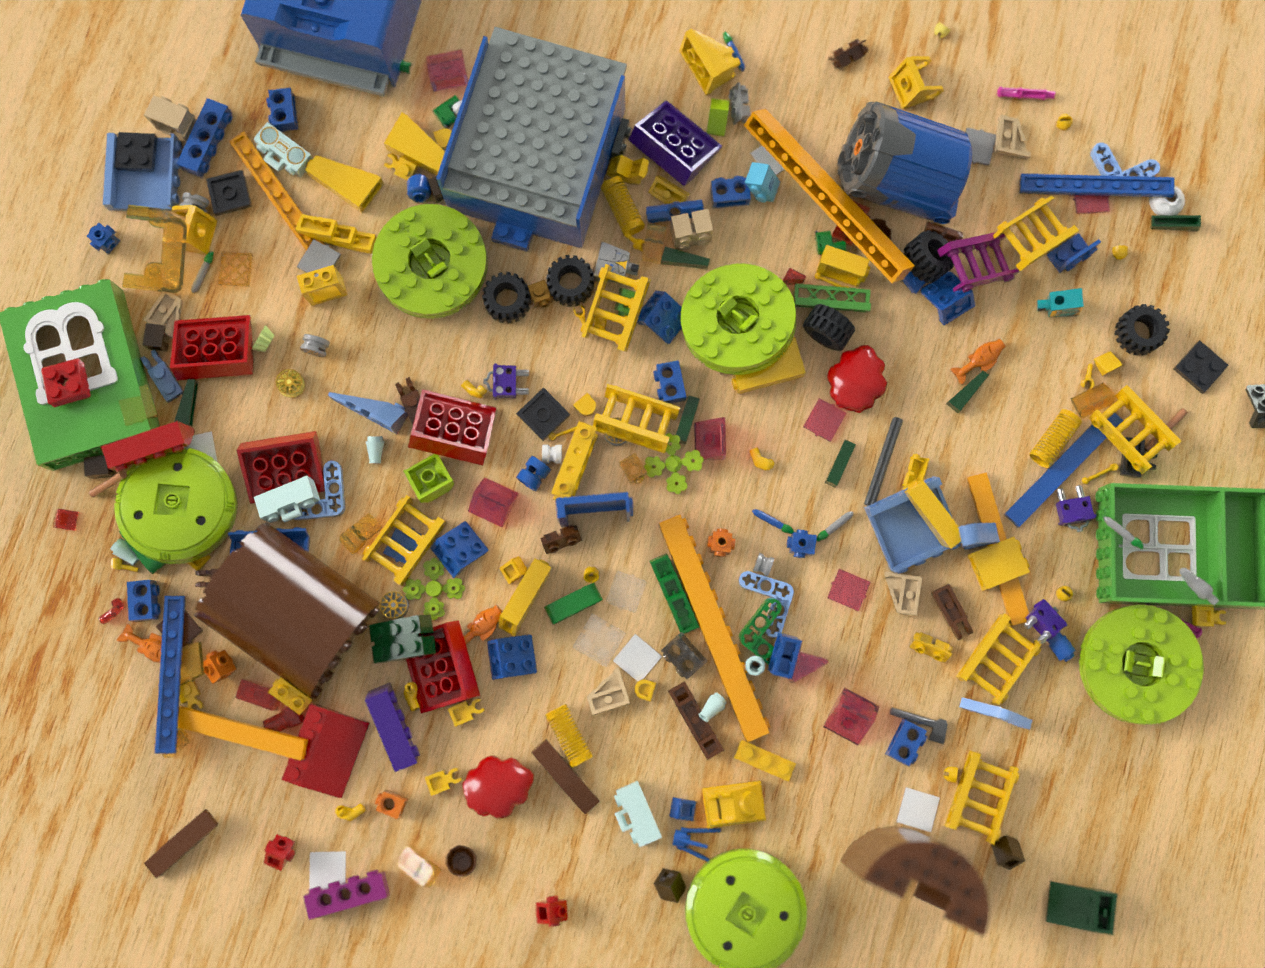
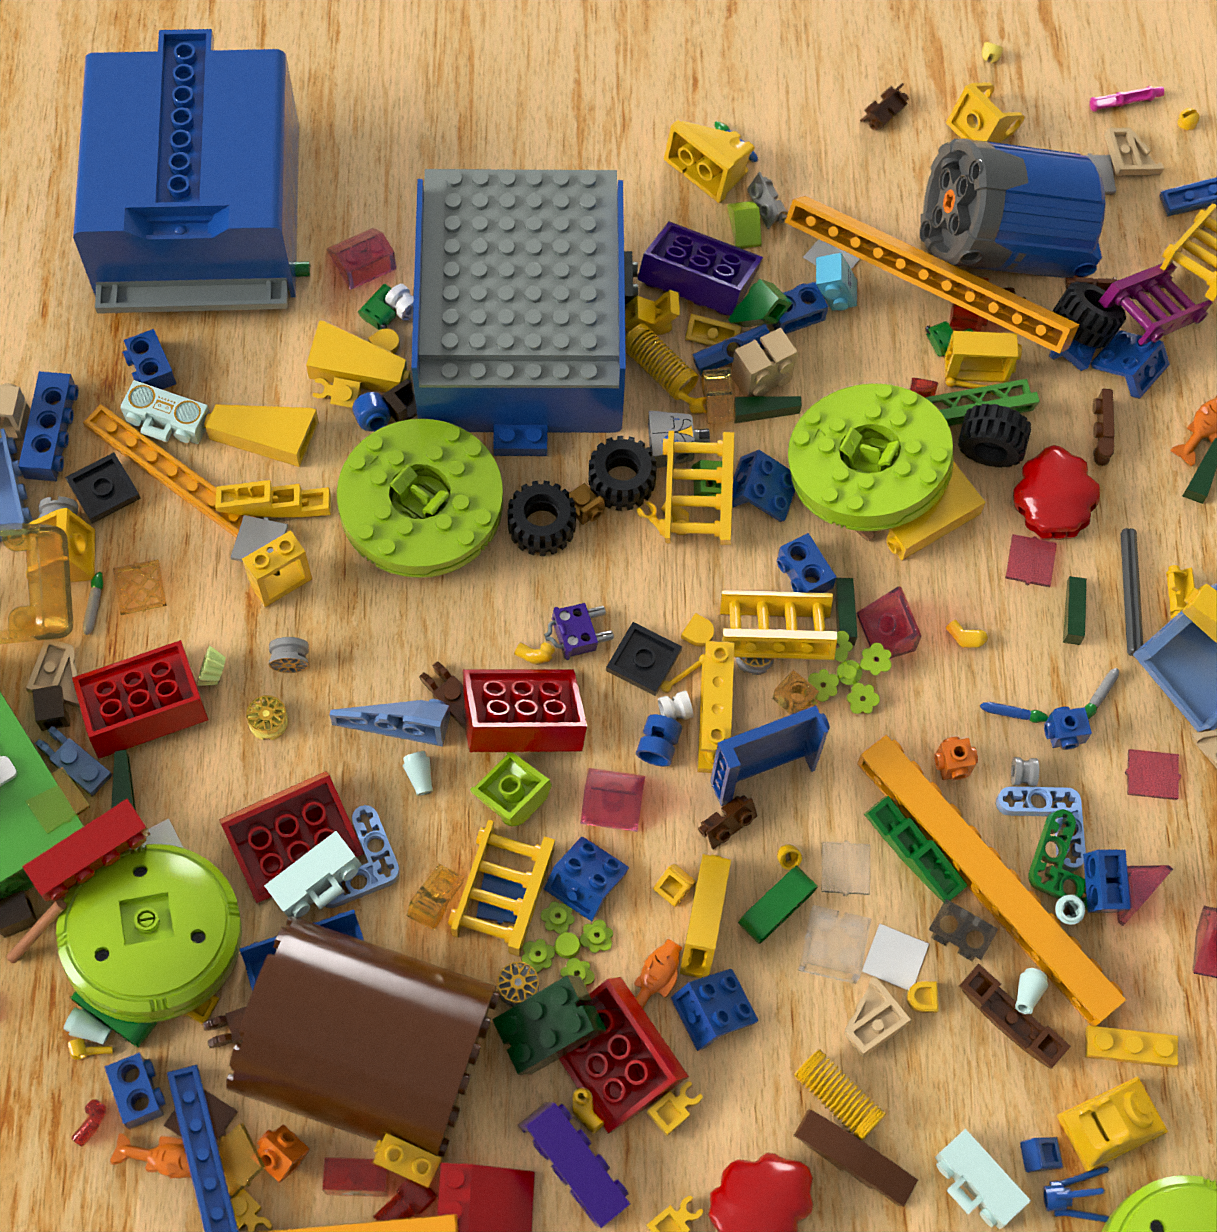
camera: 20 degrees left, 15 degrees down
(704, 185) = (761, 306): none -> green slope
(909, 341) = (1104, 427): none -> reddish brown hinge

